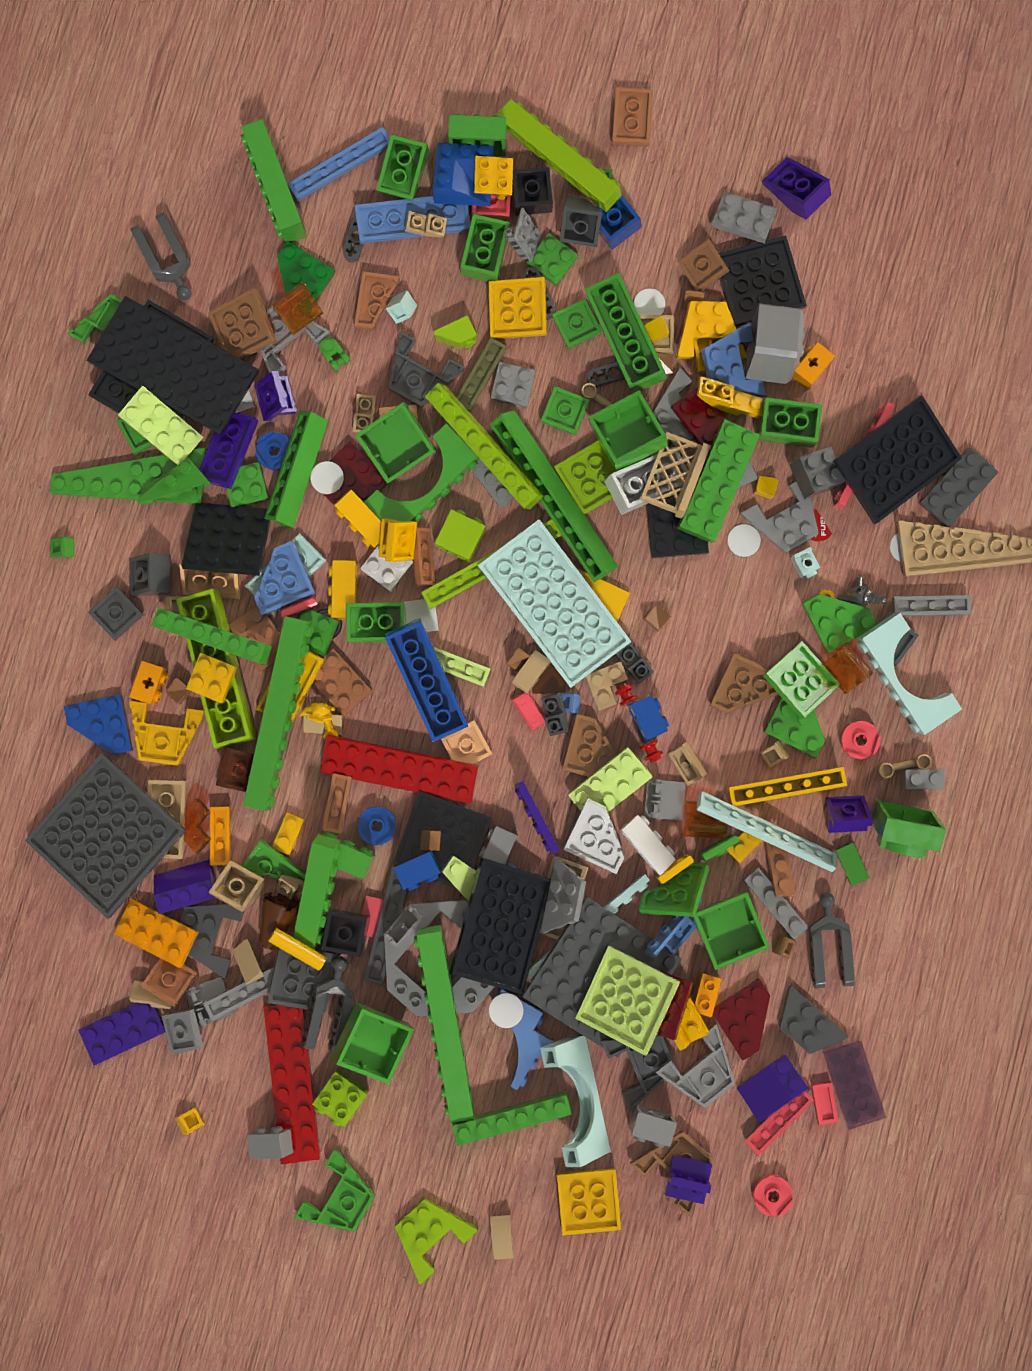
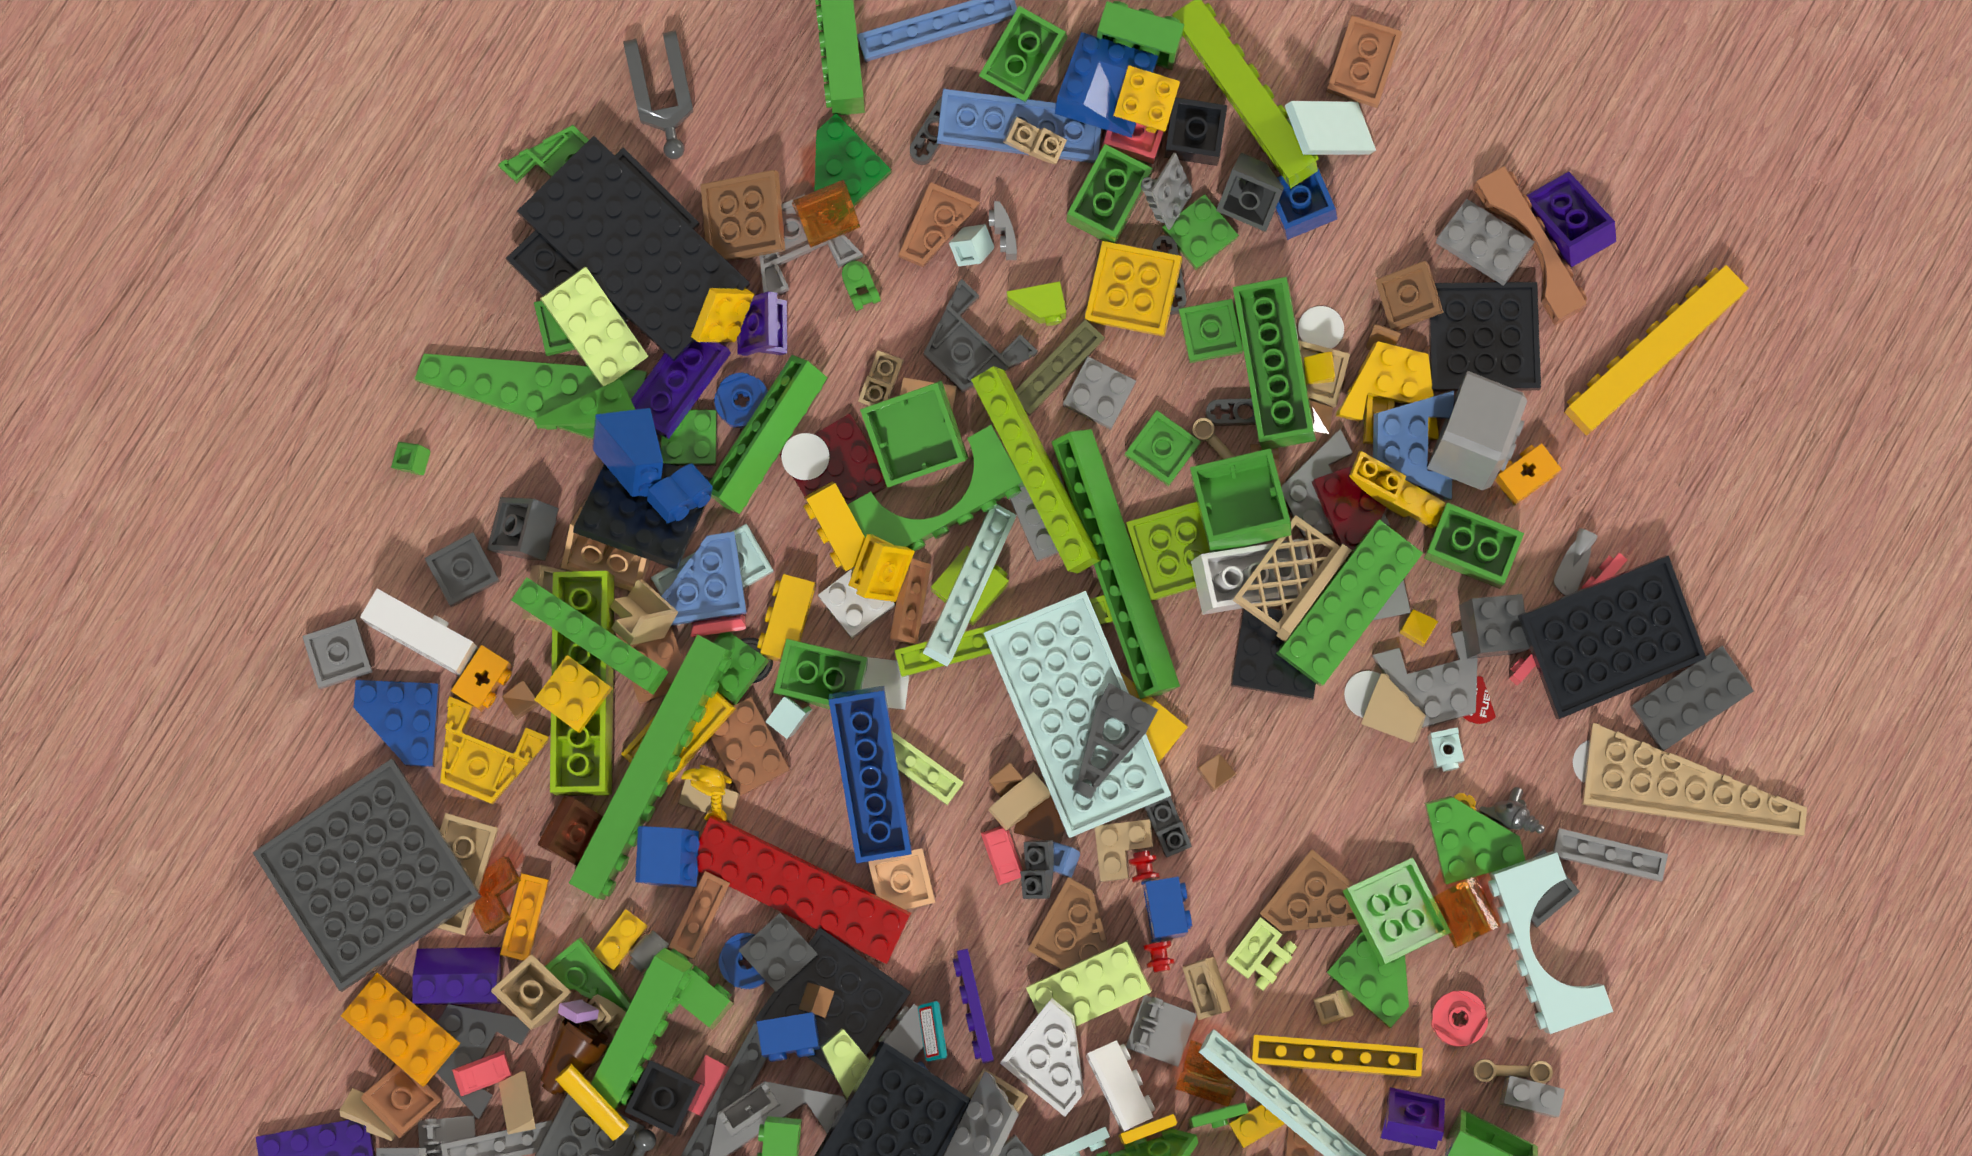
camera: 15 degrees right, 5 degrees down
(46, 691) = (337, 654): none -> light grey plate
(96, 663) = (419, 632): none -> white brick
(206, 502) = (629, 448): none -> blue slope
(219, 947) = (482, 1073): none -> coral tile
(244, 612) = (643, 615): none -> tan panel
(245, 395) = (722, 315): none -> yellow plate
(248, 523) = (680, 493): none -> blue brick
(272, 890) = (578, 1011): none -> lavender tile
(304, 770) = (667, 856): none -> blue slope
(307, 836) = (646, 949): none -> light grey brick
(361, 656) = (788, 717): none -> light aqua panel
(396, 815) = (778, 952): none -> dark grey plate
(415, 284) = (1002, 225): none -> light grey slope
(460, 536) = (969, 585): none -> light aqua plate
(513, 841) = (932, 1031): none -> slope
(588, 592) = (1126, 709): none -> dark grey plate
(621, 164) = (1330, 128): none -> light aqua tile
(712, 730) = (1255, 947): none -> yellowish green plate
(750, 185) = (1502, 197): none -> nougat arch
(764, 547) = (1393, 711): none -> tan slope
(858, 417) = (1575, 563): none -> light grey piece
(876, 261) = (1655, 350): none -> yellow brick

